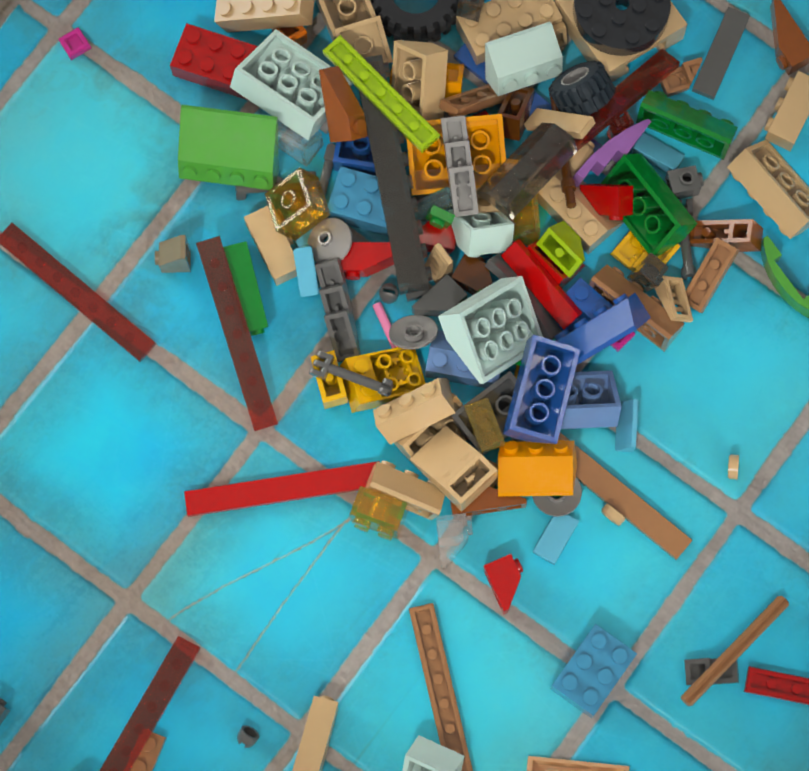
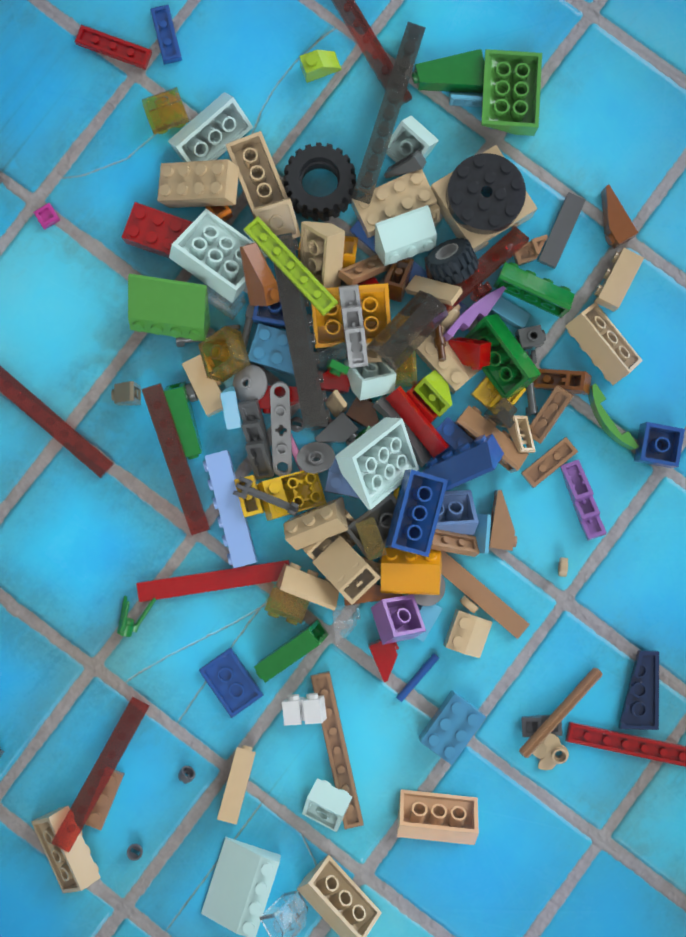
camera: 10 degrees left, 10 degrees up
(170, 545) = (126, 624): none -> green plant
(255, 254) = (191, 393): none -> dark grey tile
(305, 397) = (231, 517): none -> light blue brick
(305, 618) = (231, 682): none -> blue tile
(369, 277) = (281, 416): none -> light grey piece
(383, 574) = (291, 651): none -> green slope
(401, 648) = (307, 709): none -> white piece
(520, 529) = (398, 619): none -> medium lavender brick
(548, 610) = (417, 677): none -> blue bar
(591, 434) = (455, 543): none -> medium nougat plate
(612, 552) = (467, 633): none -> tan slope
(653, 419) = (501, 530): none -> medium nougat slope
(712, 336) = (549, 462): none -> medium nougat plate
(718, 704) = (547, 750): none -> tan plate
(757, 383) = (583, 500): none -> medium lavender slope

